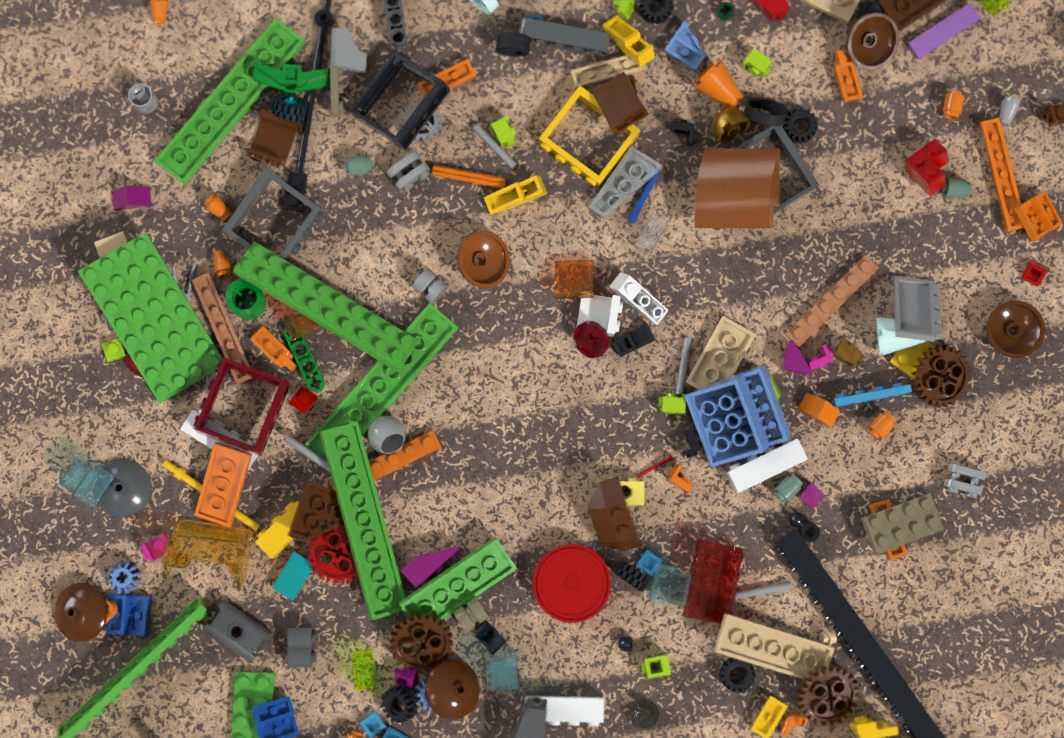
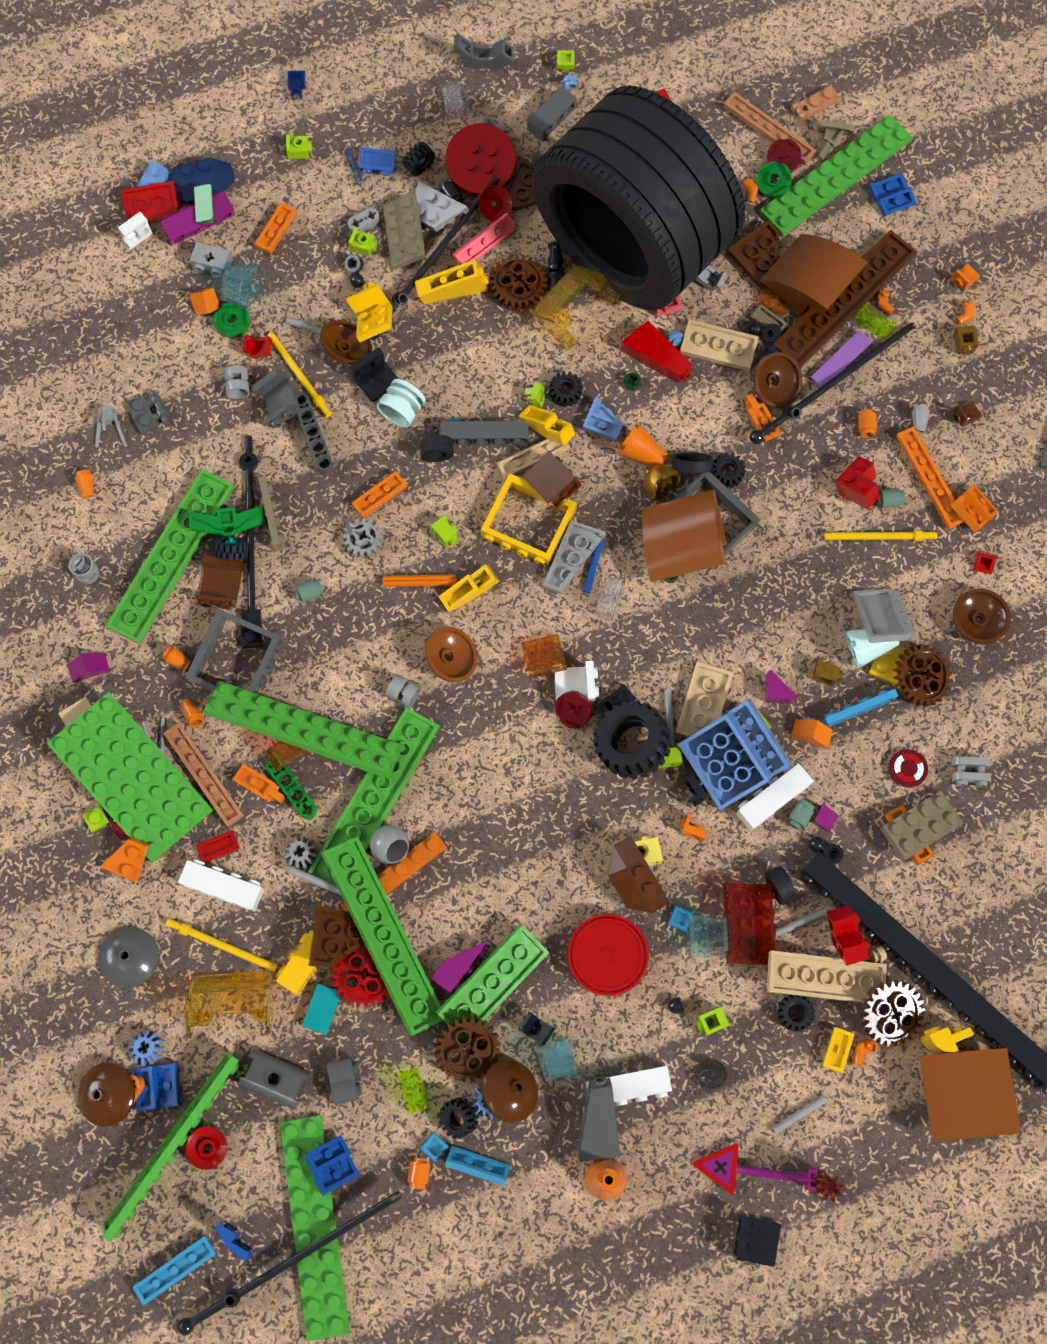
camera: 15 degrees left, 10 degrees down
(86, 481) = (90, 955): clear light blue plate -> none
(137, 396) = (127, 859): none -> orange wing
(154, 683) = (195, 1148): none -> red dish
(155, 548) = (173, 1011): dark pink bracket -> none
(214, 389) = (205, 833): dark red window -> none
(223, 484) = (231, 930): orange tile -> none
(228, 400) = (218, 846): none -> red tile
(245, 299) = (221, 740): green hat -> none
(304, 400) = (299, 827): red bracket -> none
(305, 428) = (293, 850): none -> light grey gear
(345, 53) = (275, 487): light grey tile -> none
(406, 677) = (459, 1088): magenta slope -> none
(419, 116) = (360, 531): black window -> none
(419, 171) = (359, 596): light grey brick -> none
(471, 614) = (512, 1009): dark tan wheel -> none
(495, 147) = (440, 548): light grey bar -> none
(624, 366) = (620, 720): none -> black tyre
(631, 576) = (666, 934): black tyre -> none
(638, 297) = (610, 661): white slope -> none
(656, 465) = (676, 810): red piece -> none
(682, 127) = (617, 493): black bracket -> none
(752, 552) = (781, 884): none -> black tyre
(757, 63) = (674, 422): lime brick -> none
(803, 614) = (847, 936): none -> red brick
(818, 362) = (801, 686): dark pink bracket -> none
(832, 300) = (798, 626): nougat plate -> none
(880, 77) = (793, 412): none -> black bar
(881, 425) = (877, 734): orange brick -> none
(904, 464) = (908, 768): none -> tile
(973, 232) = (916, 535): none -> yellow bar

